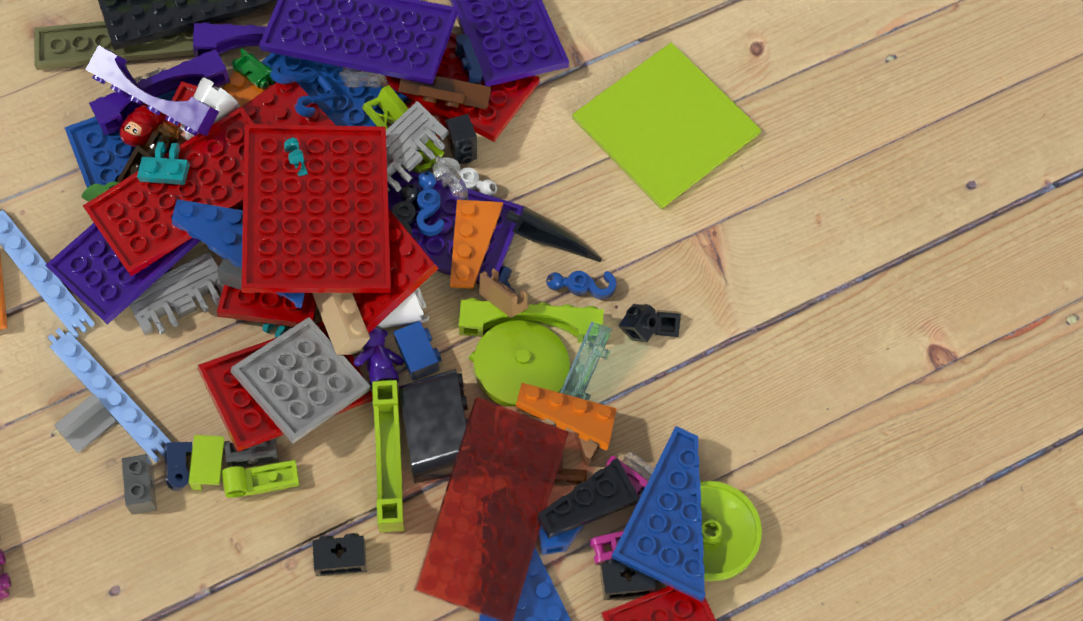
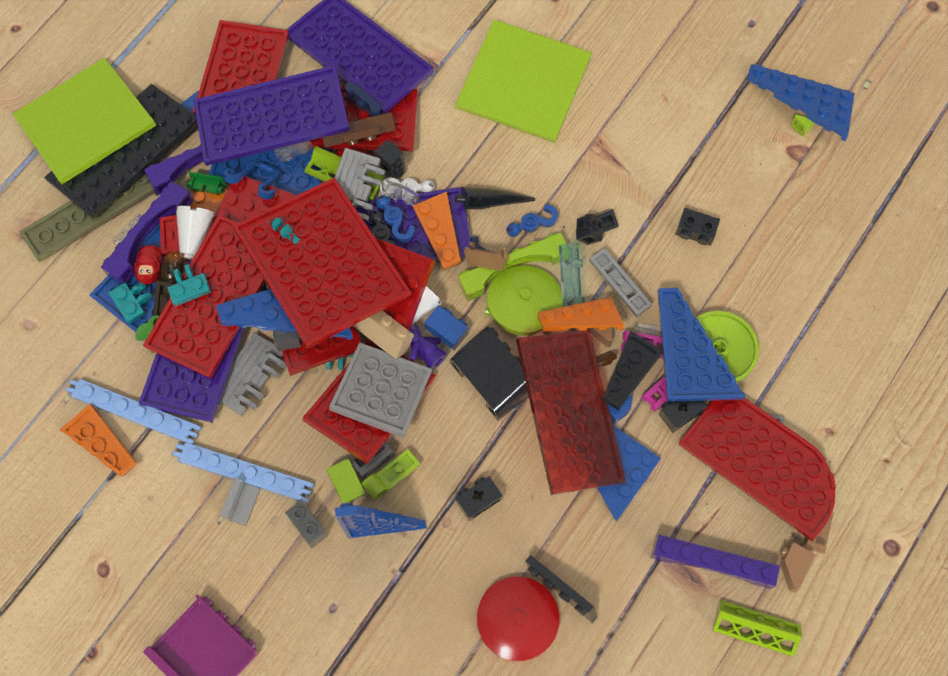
camera: 25 degrees left, 5 degrees up
(96, 154) = (127, 303): none -> teal hinge
(111, 68) = (103, 232): arch -> none
(175, 464) = (324, 496): dark blue leg -> none
(198, 515) = (364, 521): none -> blue wing
(388, 456) = (480, 426): lime arch -> none
(639, 399) = (620, 282): none -> light grey hinge
(767, 382) = (697, 227): none -> black brick
(963, 327) = (801, 124): none -> lime slope
(997, 312) = (821, 102): none -> blue wing

